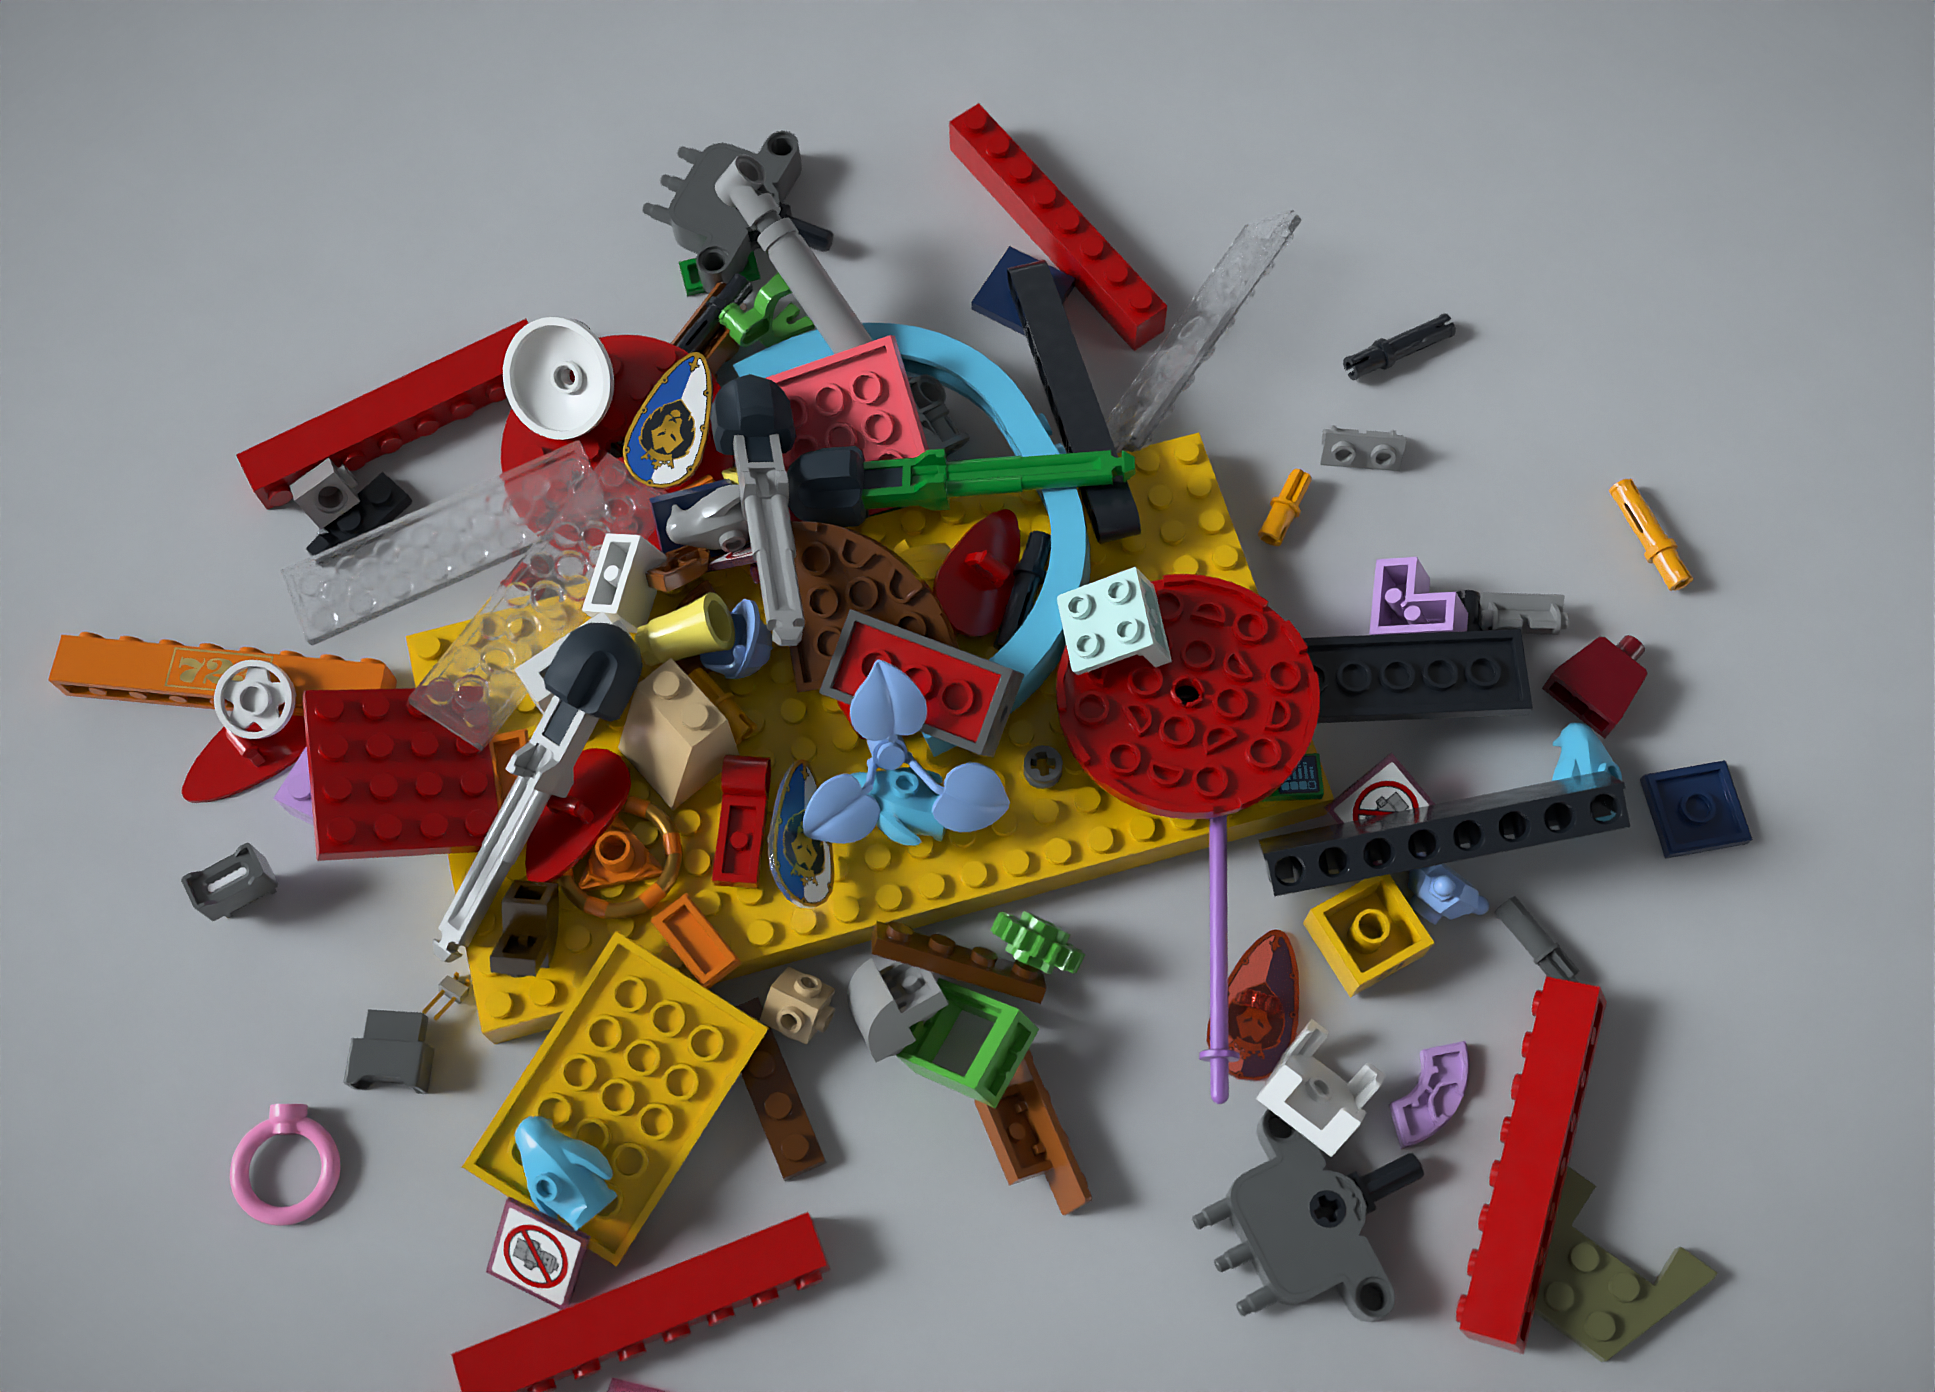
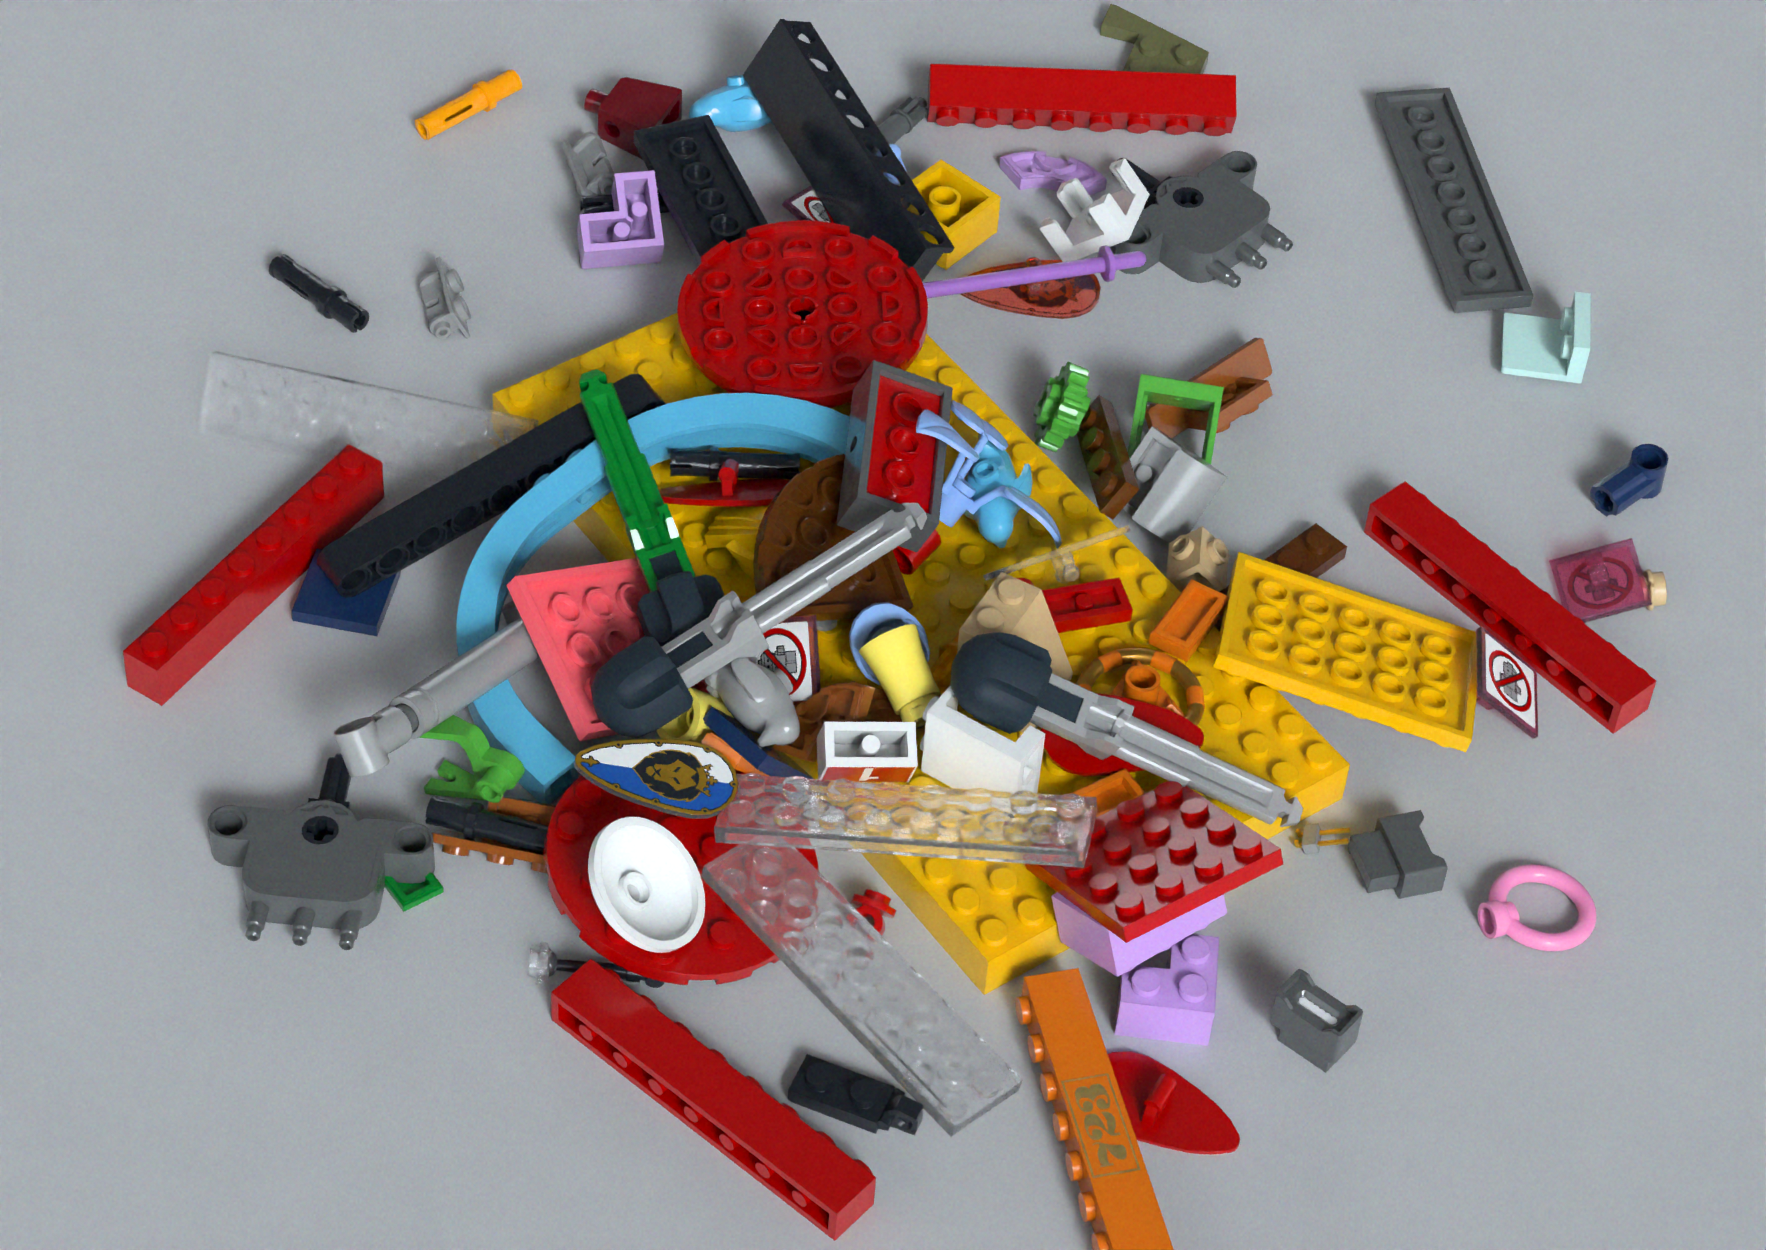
camera: 115 degrees left, 20 degrees down
(255, 699) = (1117, 1072): white wheel -> none
(325, 508) = (844, 1114): light grey brick -> none
(529, 929) = (1253, 729): dark brown brick -> none
(563, 1172) = (1440, 647): medium azure animal -> none
(1113, 622) = (769, 351): light aqua bracket -> none
(1285, 508) = (535, 342): light orange axle -> none
(1695, 809) = (719, 52): dark blue tile -> none

